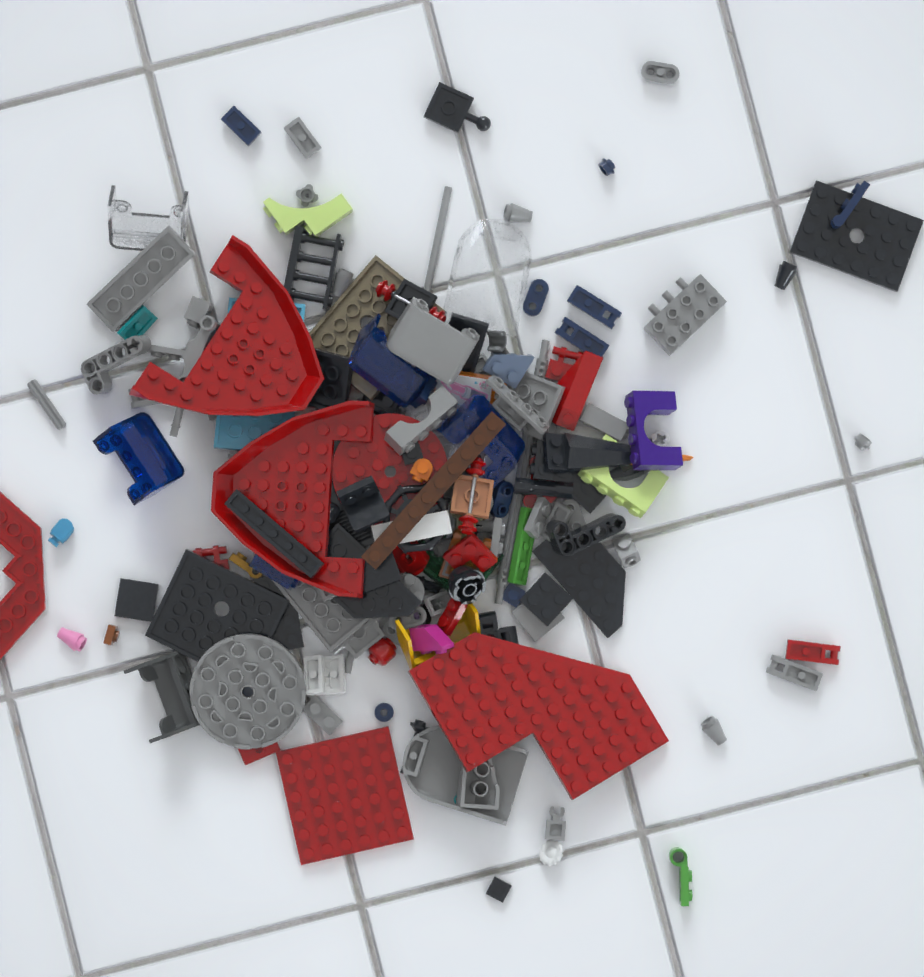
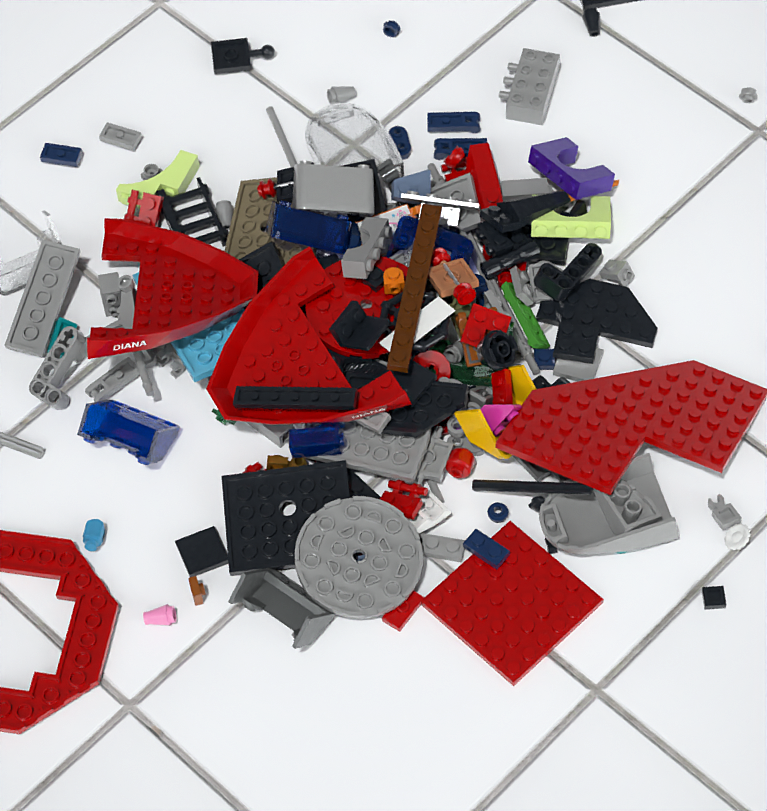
camera: 25 degrees left, 30 degrees down
(277, 243) = (149, 210): none -> plate
(310, 663) = (408, 504): none -> red plate
(351, 743) = (486, 549): none -> dark blue plate
(426, 721) = (531, 487): none -> black axle
(565, 353) = (456, 156): none -> red plate

